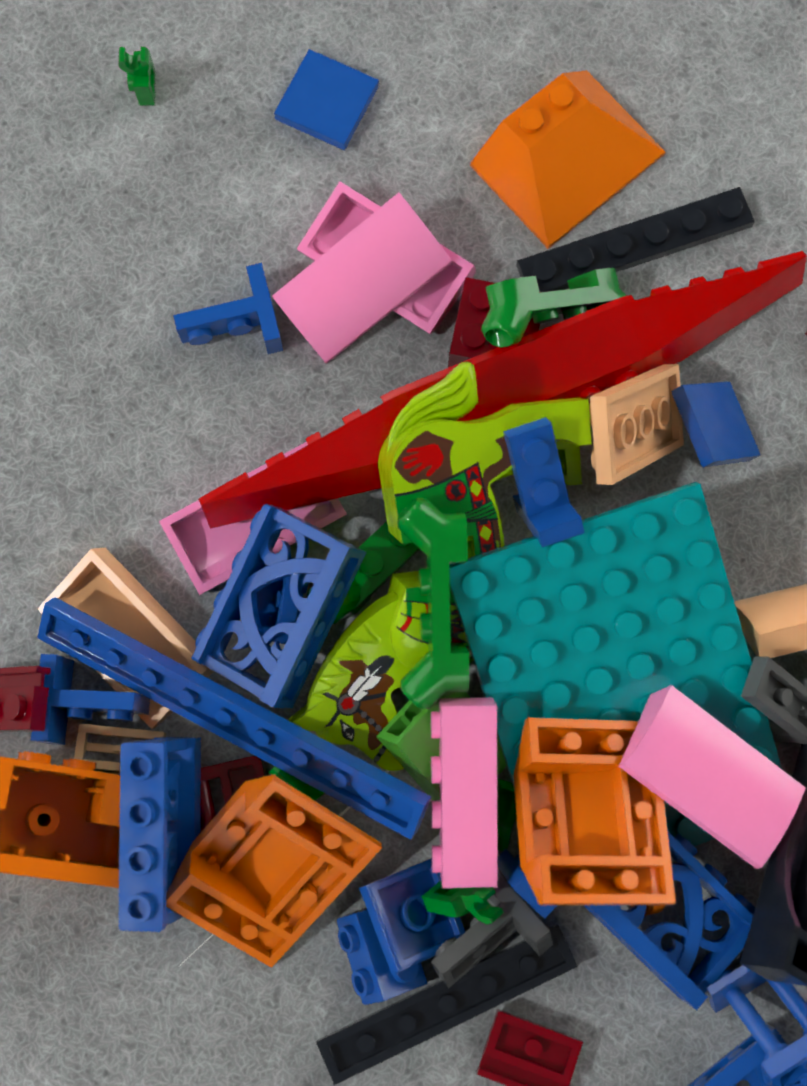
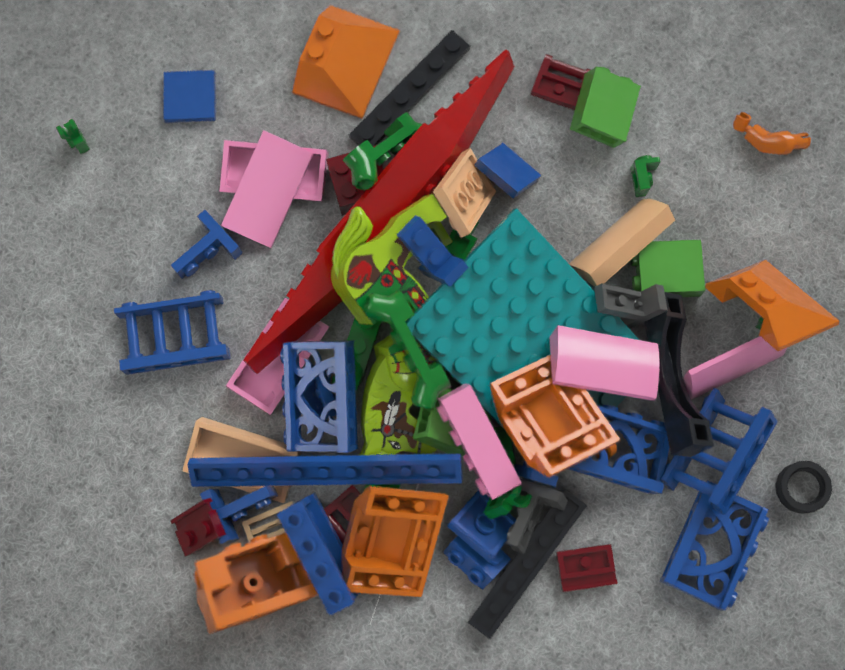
camera: 25 degrees left, 0 degrees up
(95, 437) = (188, 353): none -> blue fence
(594, 498) = (462, 246): none -> green plate

